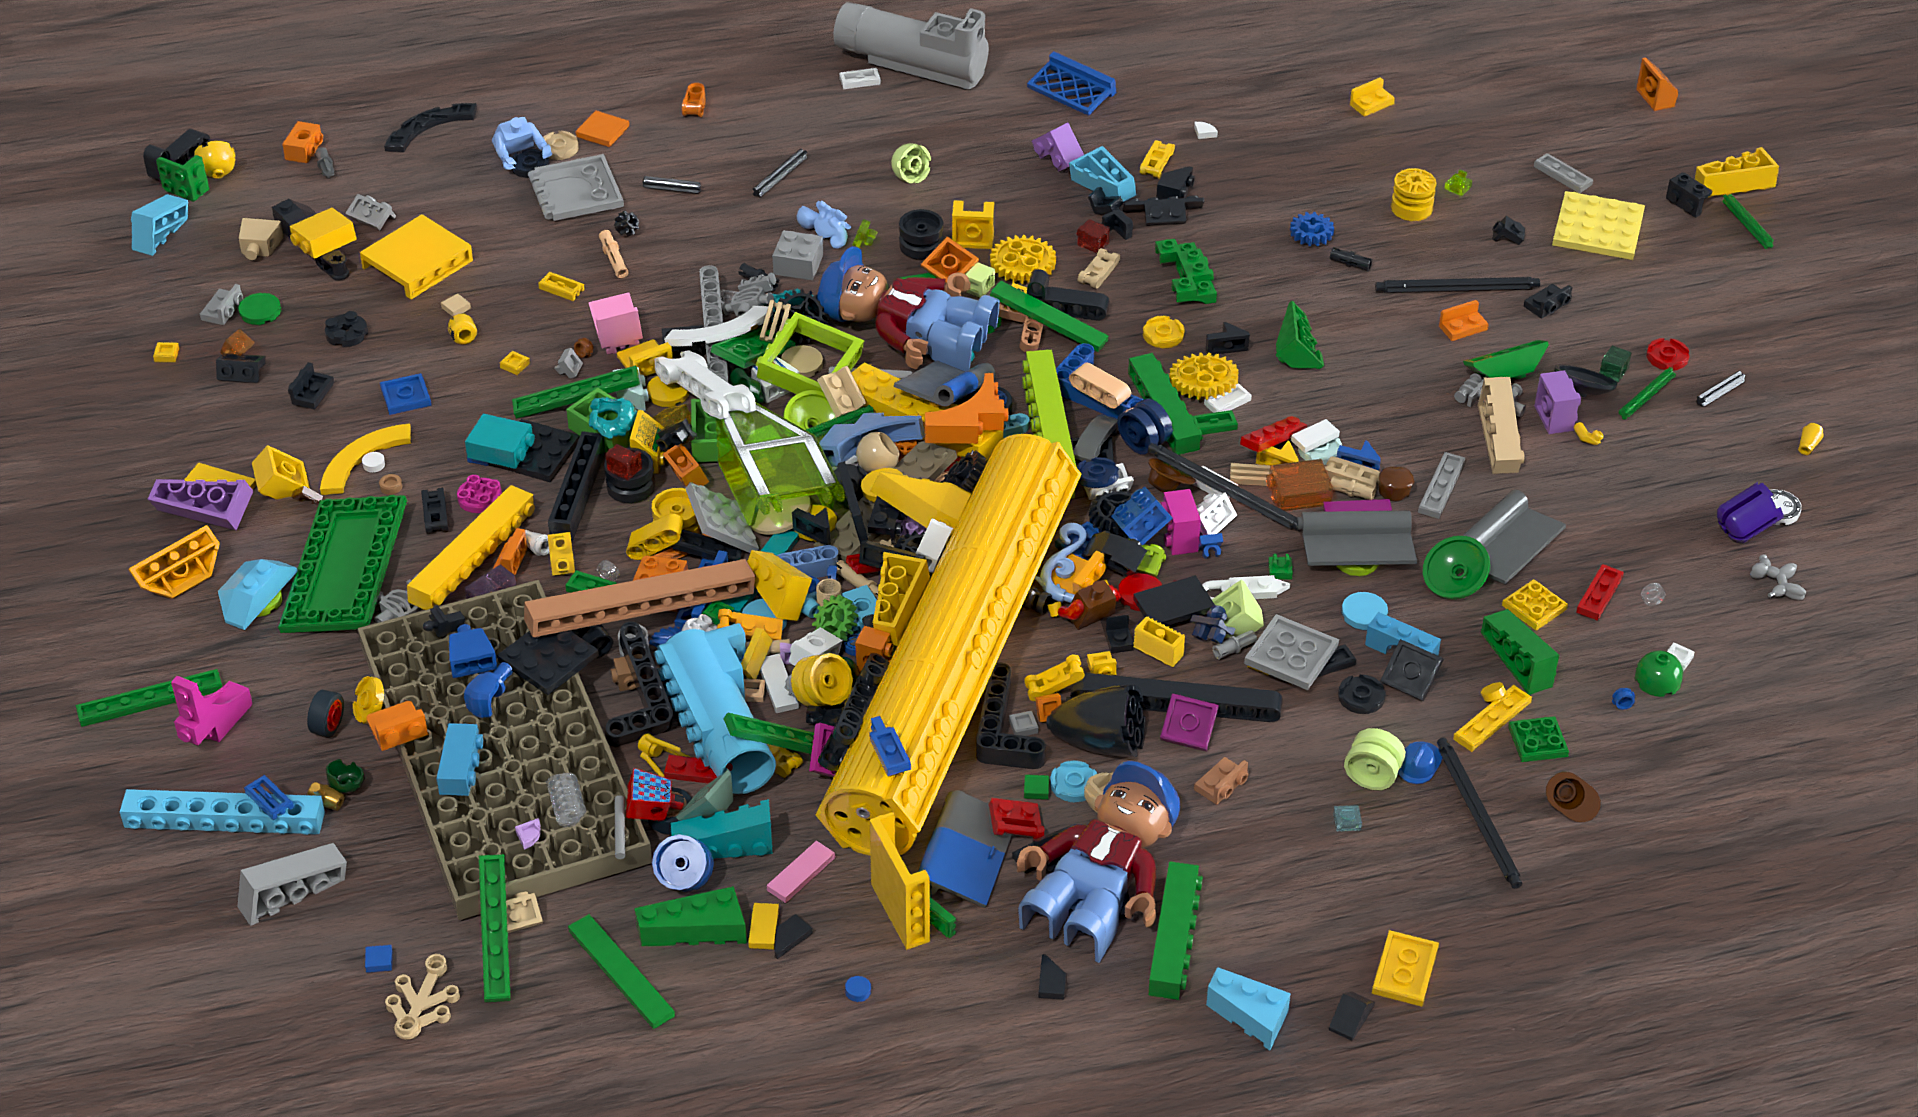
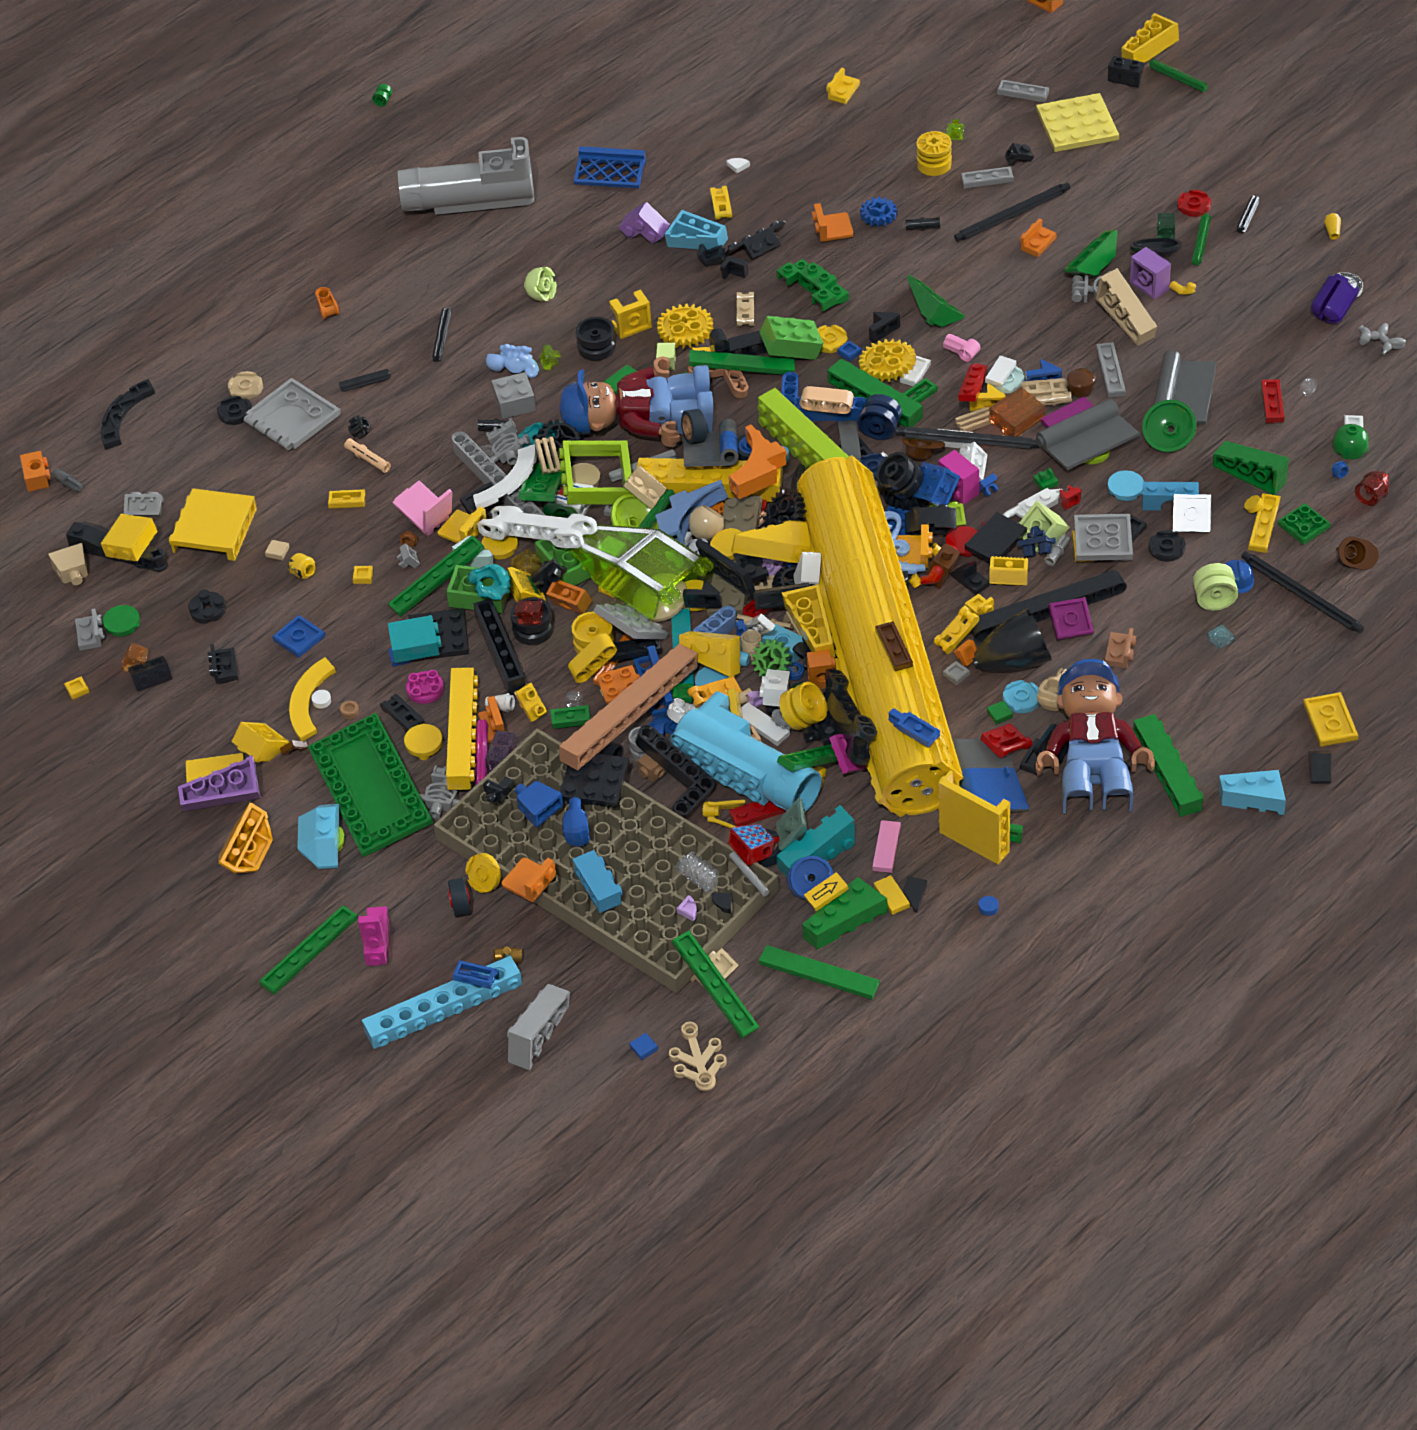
camera: 25 degrees left, 5 degrees up
(344, 777) = (511, 935): dark green hair -> none
(428, 544) = (423, 741): none -> yellow tile
(485, 566) = (481, 750): none -> dark pink axle
(517, 136) = (211, 392): light blue torso -> none
(569, 842) = (722, 901): none -> black tile
(602, 128) = (269, 357): orange tile -> none
(682, 885) = (826, 891): none -> yellow tile
(842, 577) = (760, 624): none -> white tile
(860, 78) = (439, 230): white tile -> none
(939, 654) = (894, 646): none -> reddish brown tile
(940, 353) = (693, 426): none -> black wheel
(949, 259) = (637, 351): orange slope -> none
(993, 745) = (960, 695): black beam -> none
(1051, 980) = (1111, 837): black tile -> none
(1093, 236) = (722, 285): clear red brick -> none
(1108, 489) = (900, 475): none -> black wheel
(1116, 311) = (791, 337): none -> bright green brick
(1173, 351) = (849, 351): none -> blue tile
(1175, 183) = (752, 218): black slope -> none
(1251, 224) = (831, 226): none -> orange bracket
(1291, 596) = (1071, 497): none -> red tile
(1296, 398) = (965, 349): none -> bright pink piece
(1457, 241) = (987, 177): none -> light grey tile
(1535, 604) = (1234, 428): yellow tile -> none
(1548, 300) = (1084, 196): black bracket -> none
(1653, 732) = (1375, 483): none -> clear red helmet

